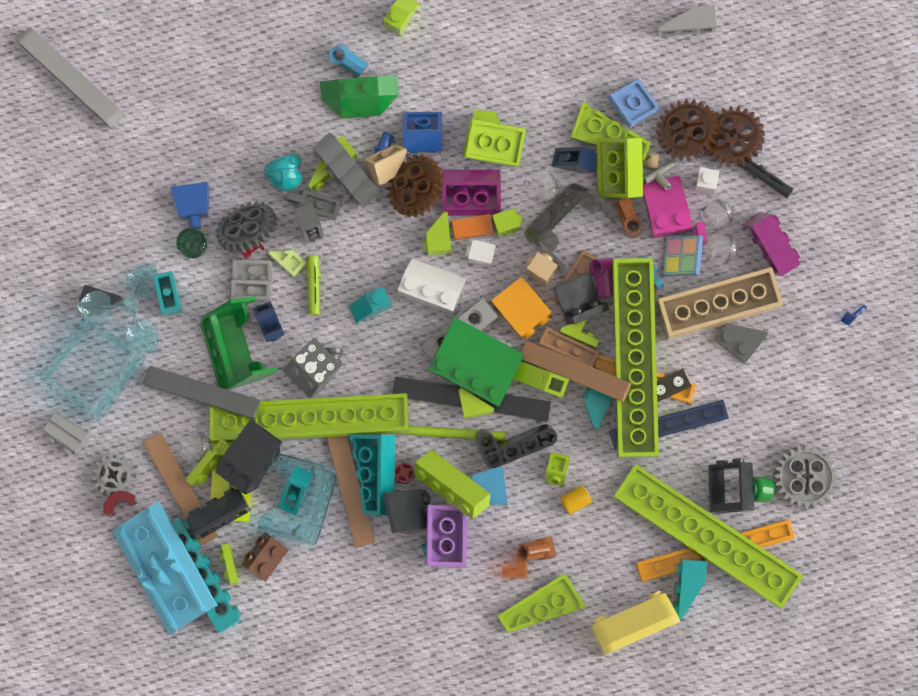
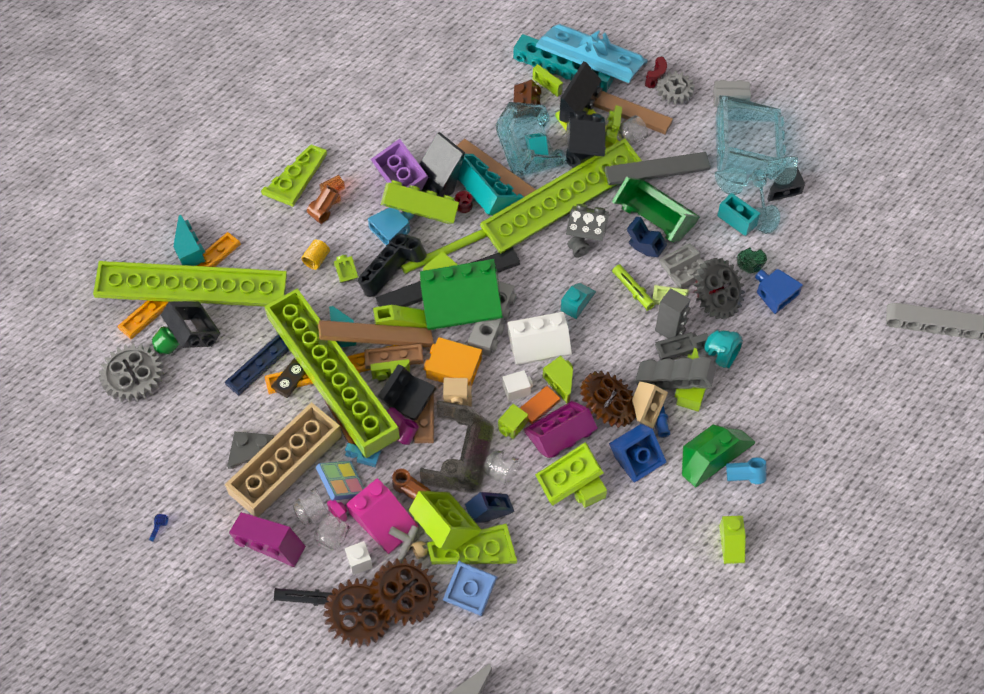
camera: 145 degrees right, 20 degrees down
(634, 623) = (206, 184): light yellow windscreen -> none

